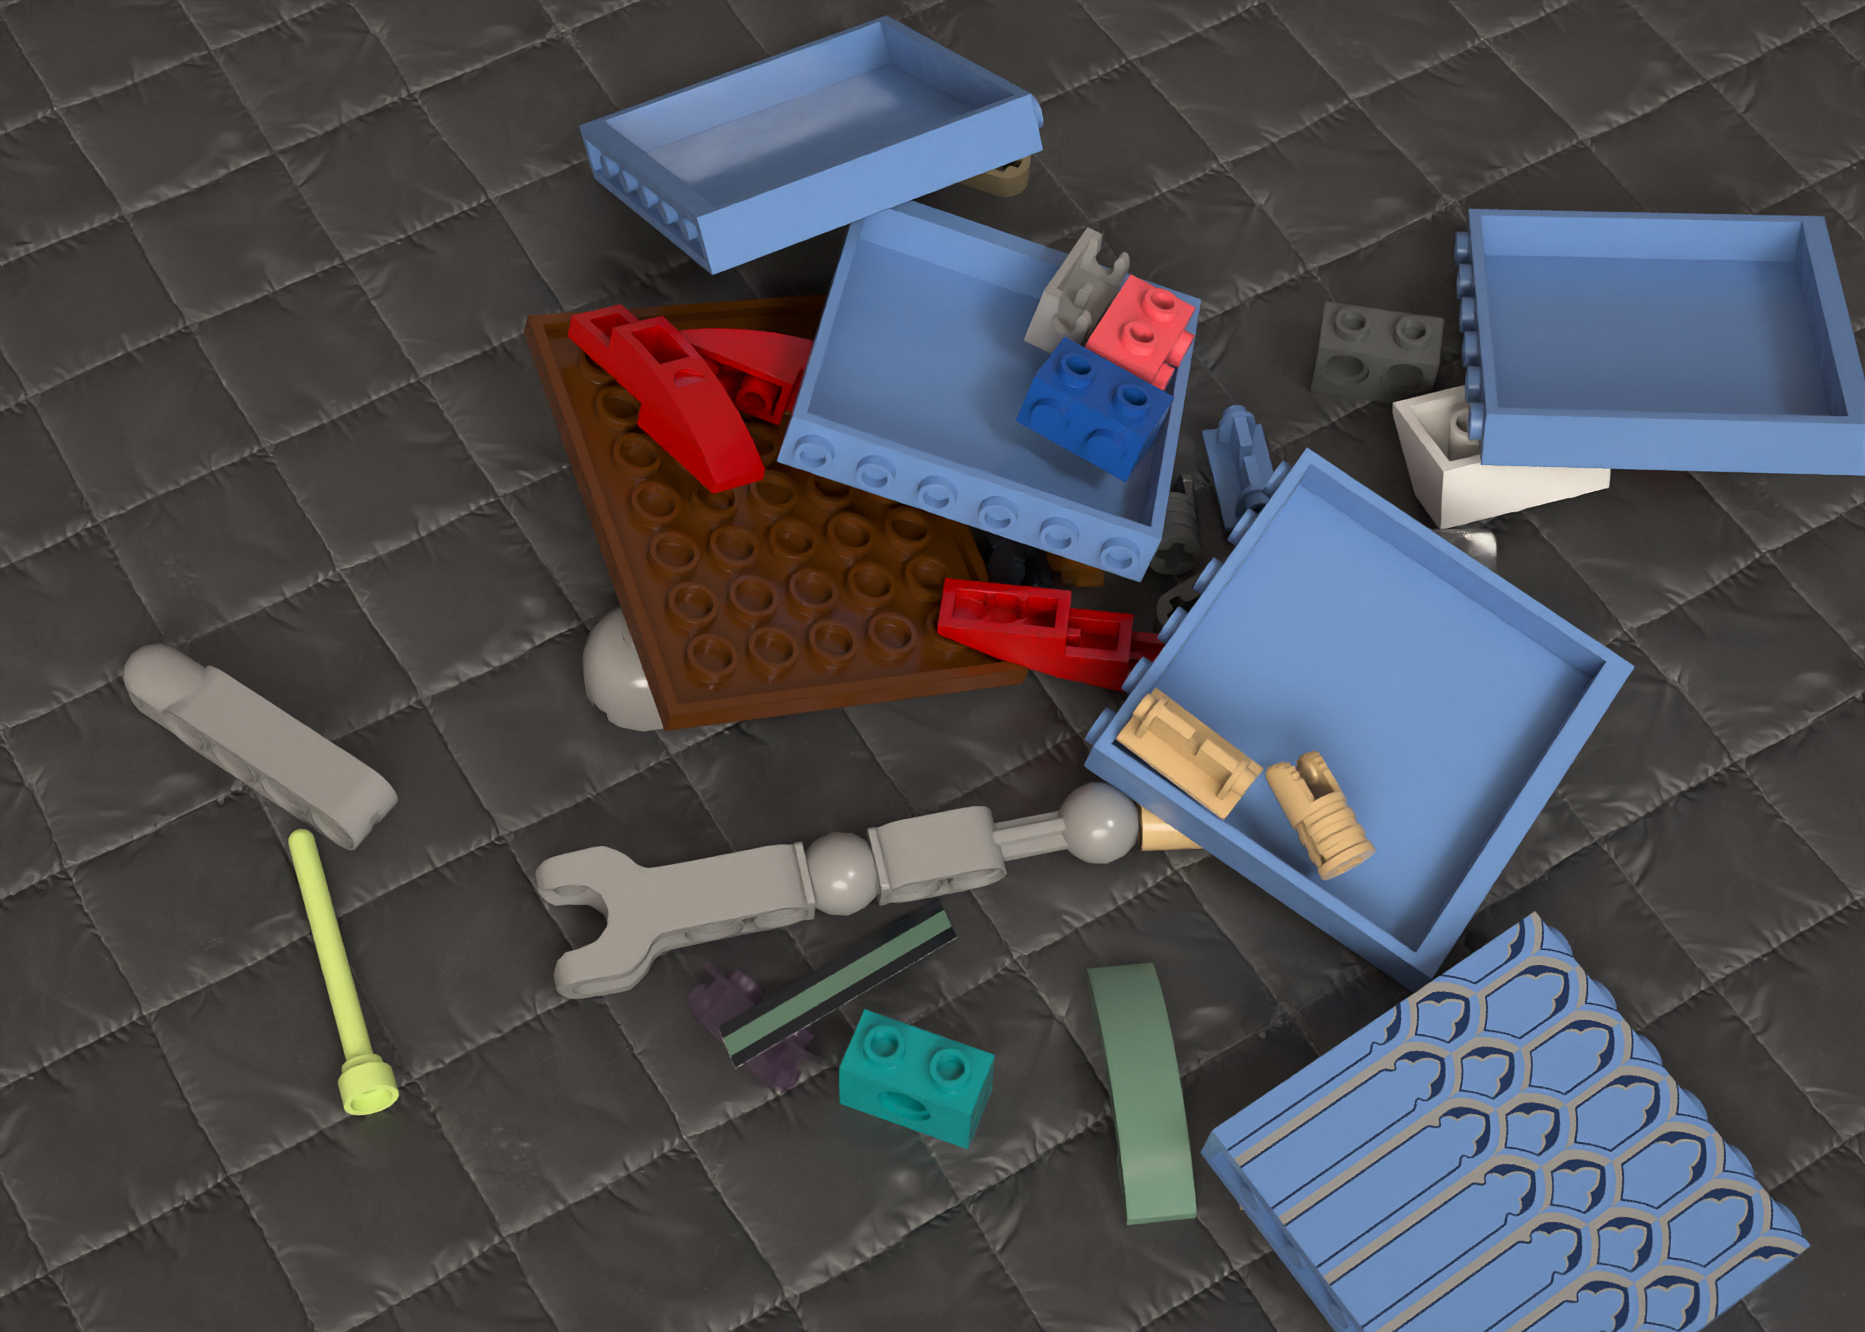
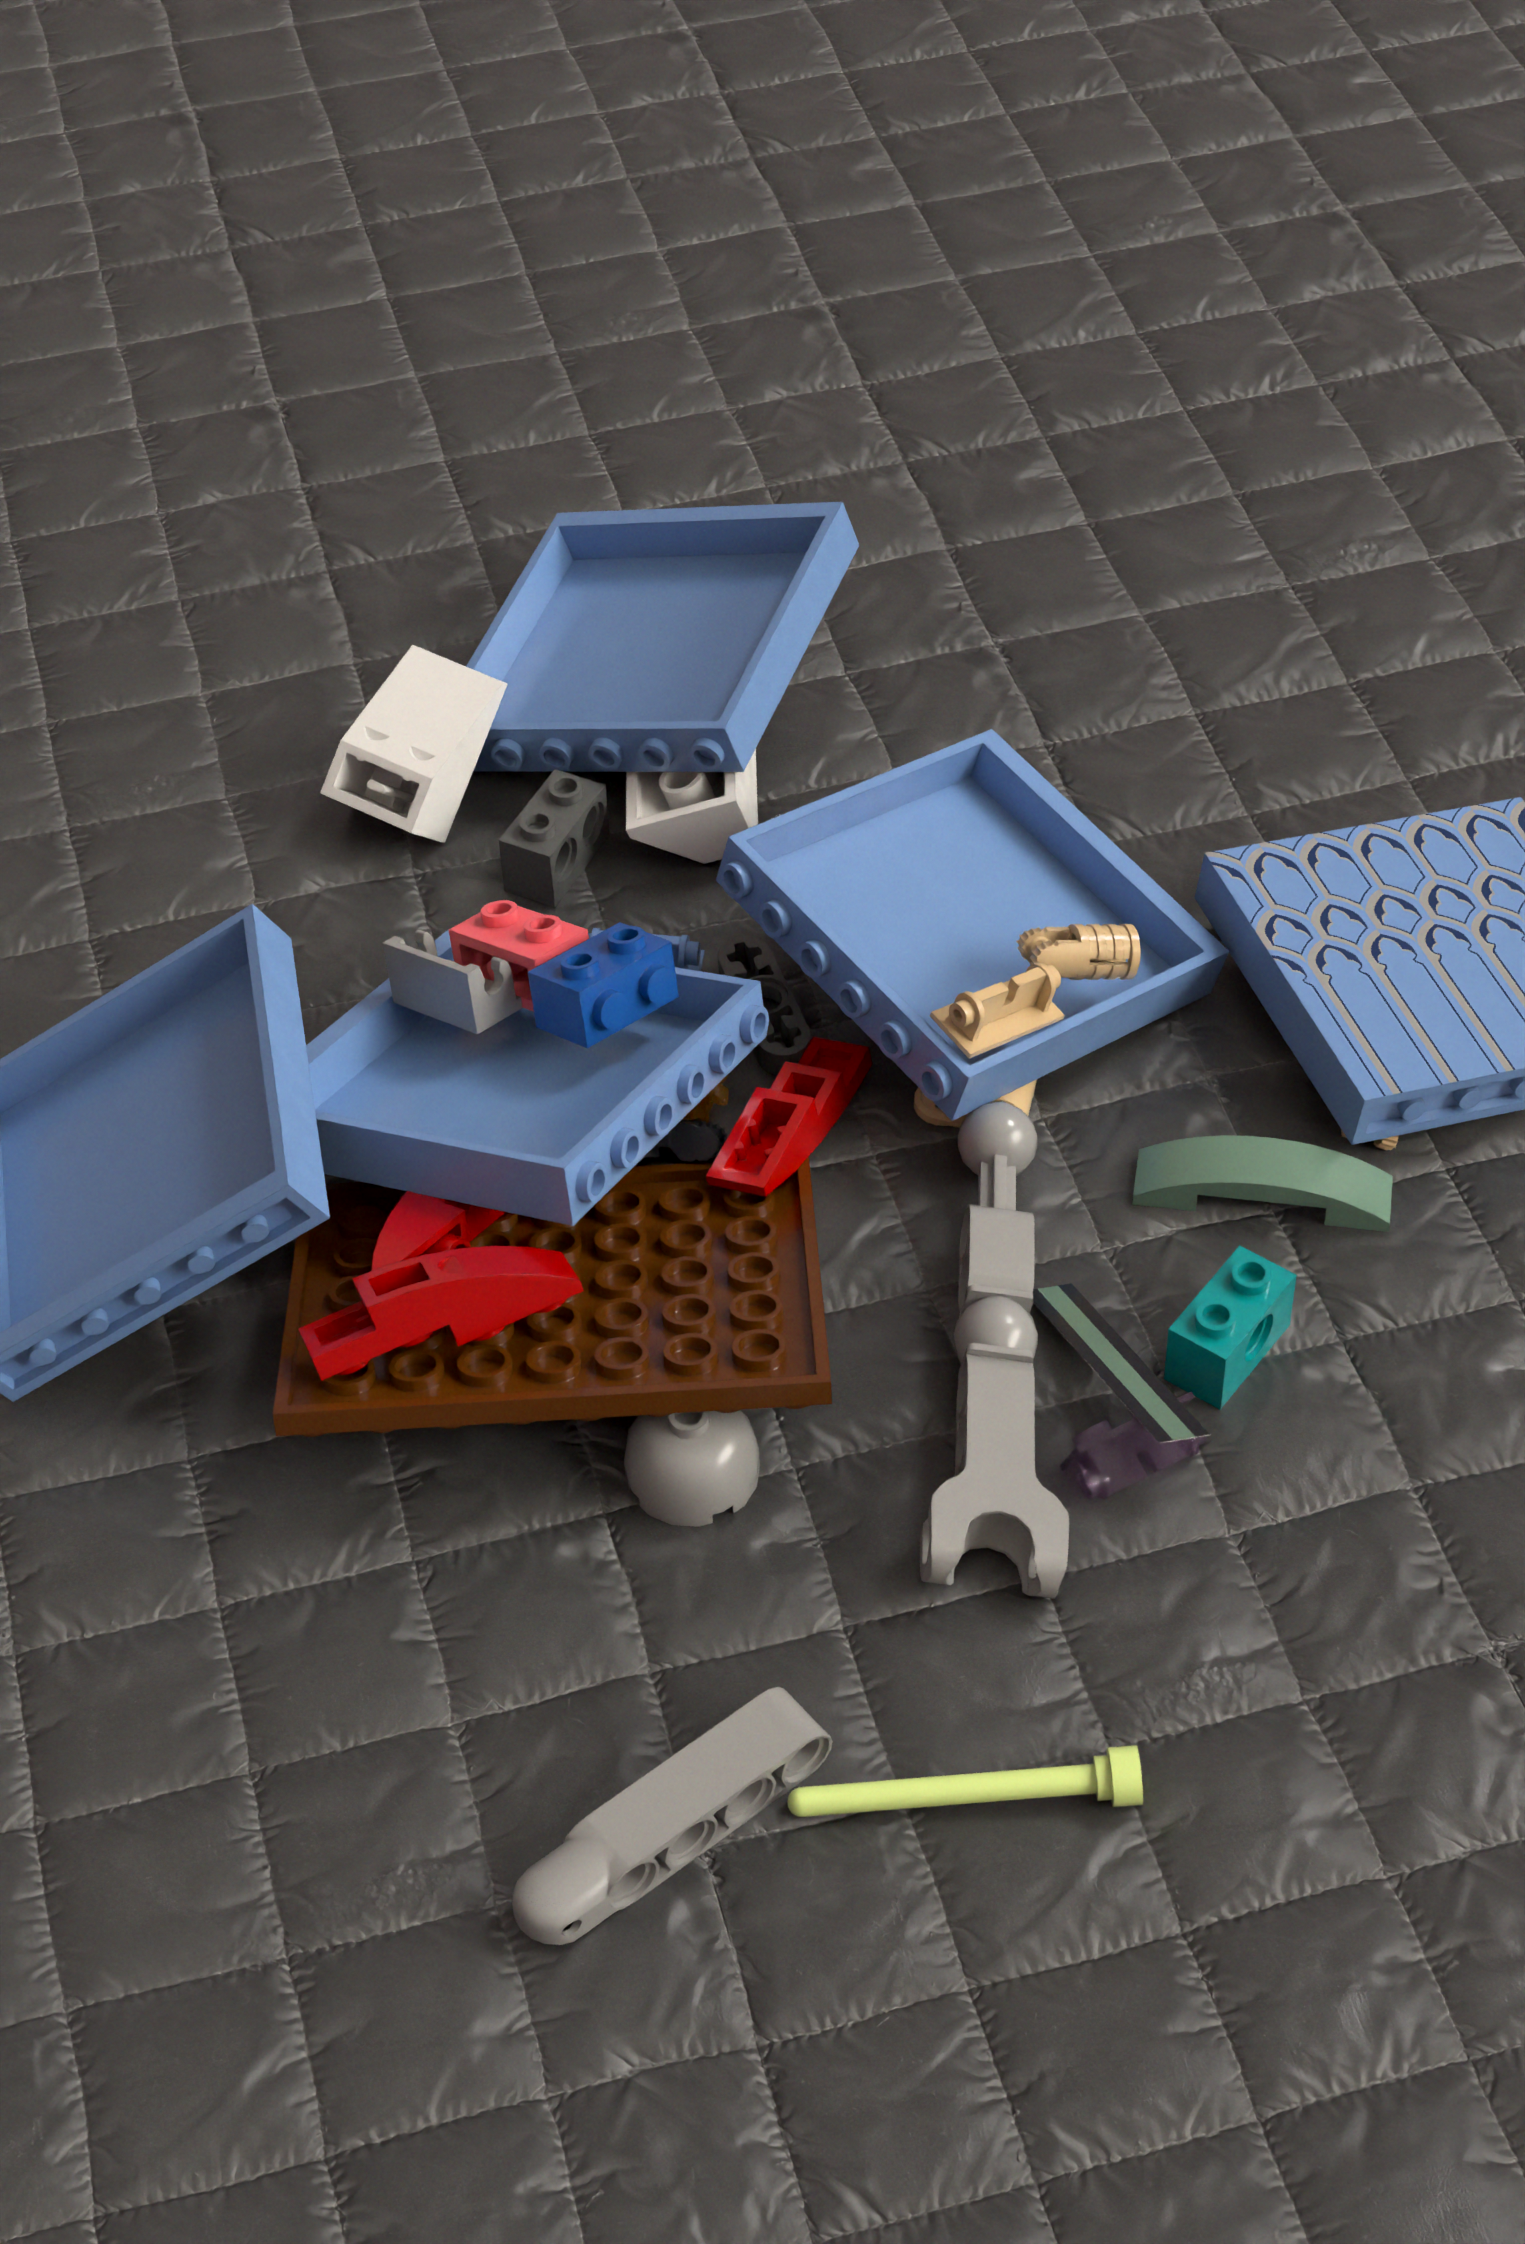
camera: 70 degrees left, 10 degrees down
(1421, 200) = (416, 744): none -> white slope

